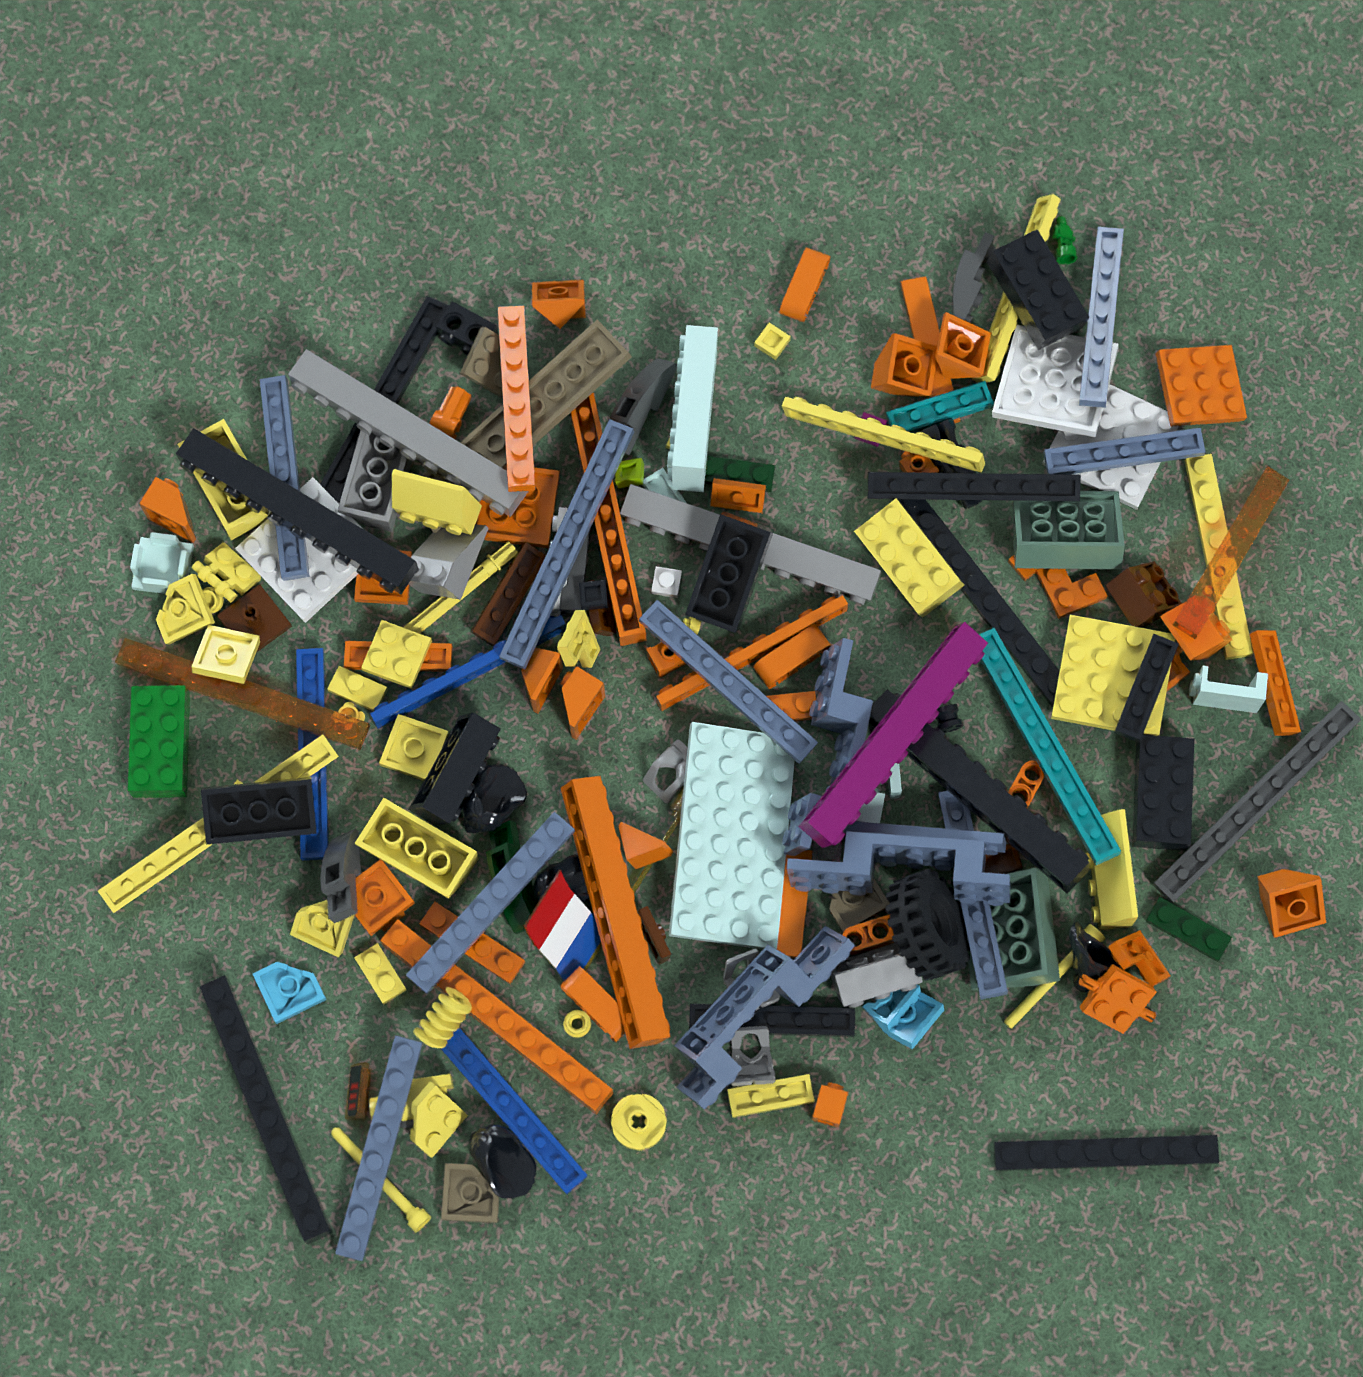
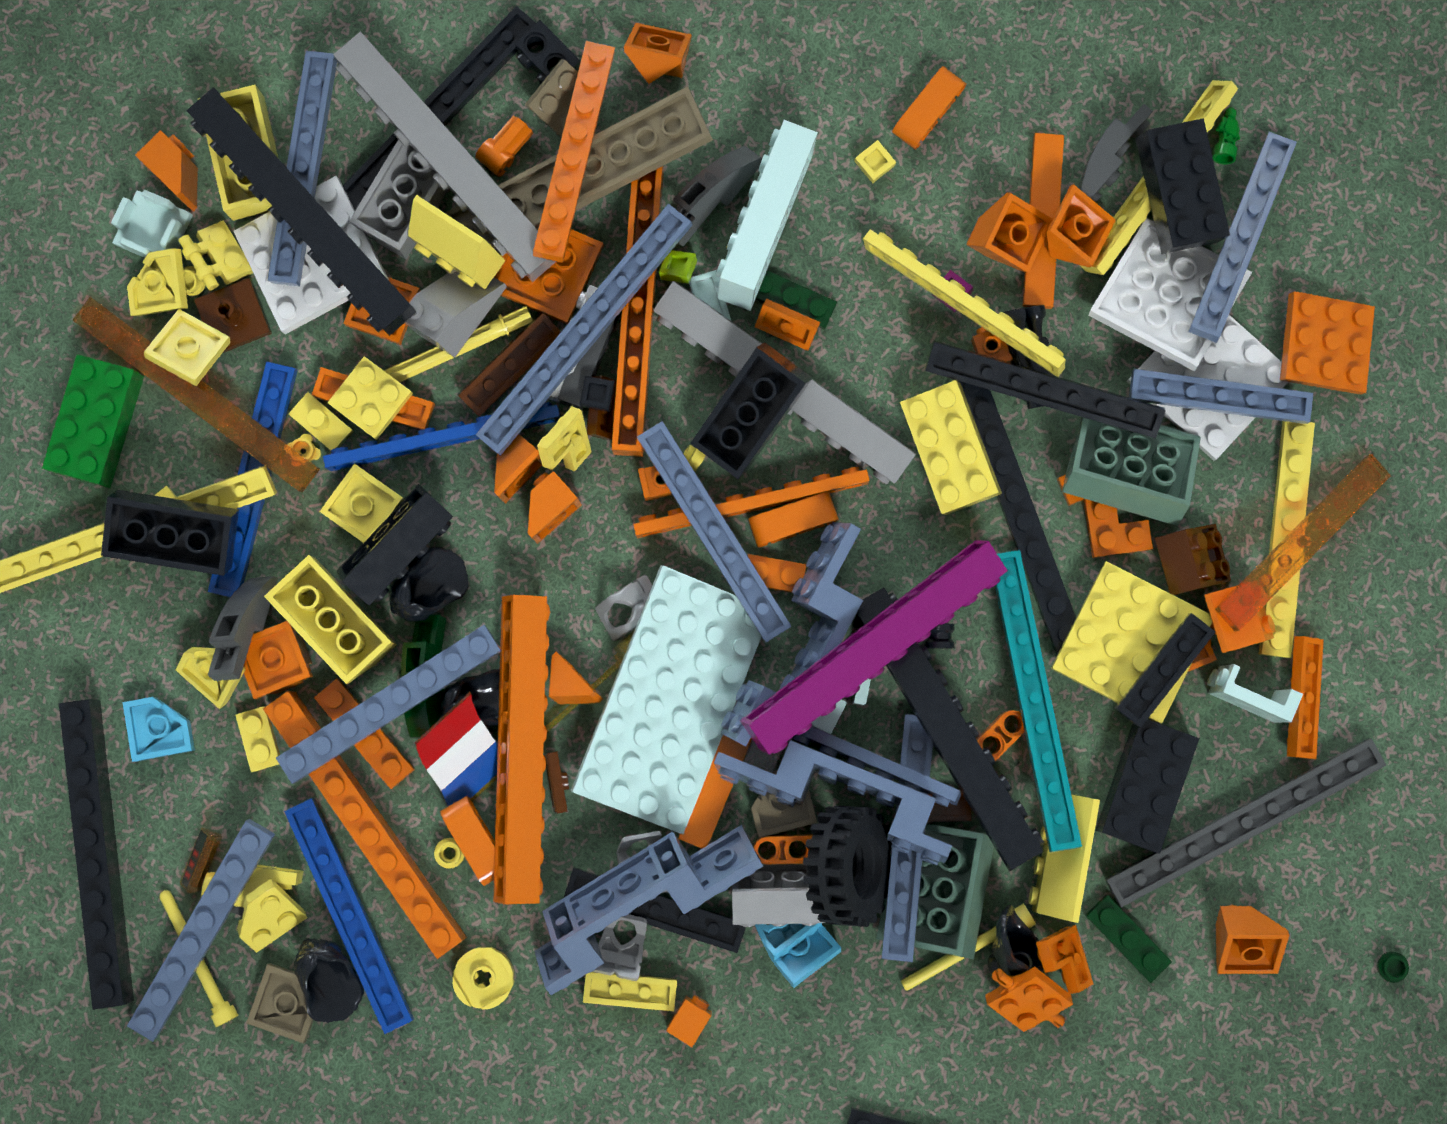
camera: 15 degrees right, 10 degrees up
(445, 1020) = (303, 815): light yellow piece -> none
(666, 582) = (683, 398): white plate -> none
(942, 407) = (1036, 289): teal tile -> none

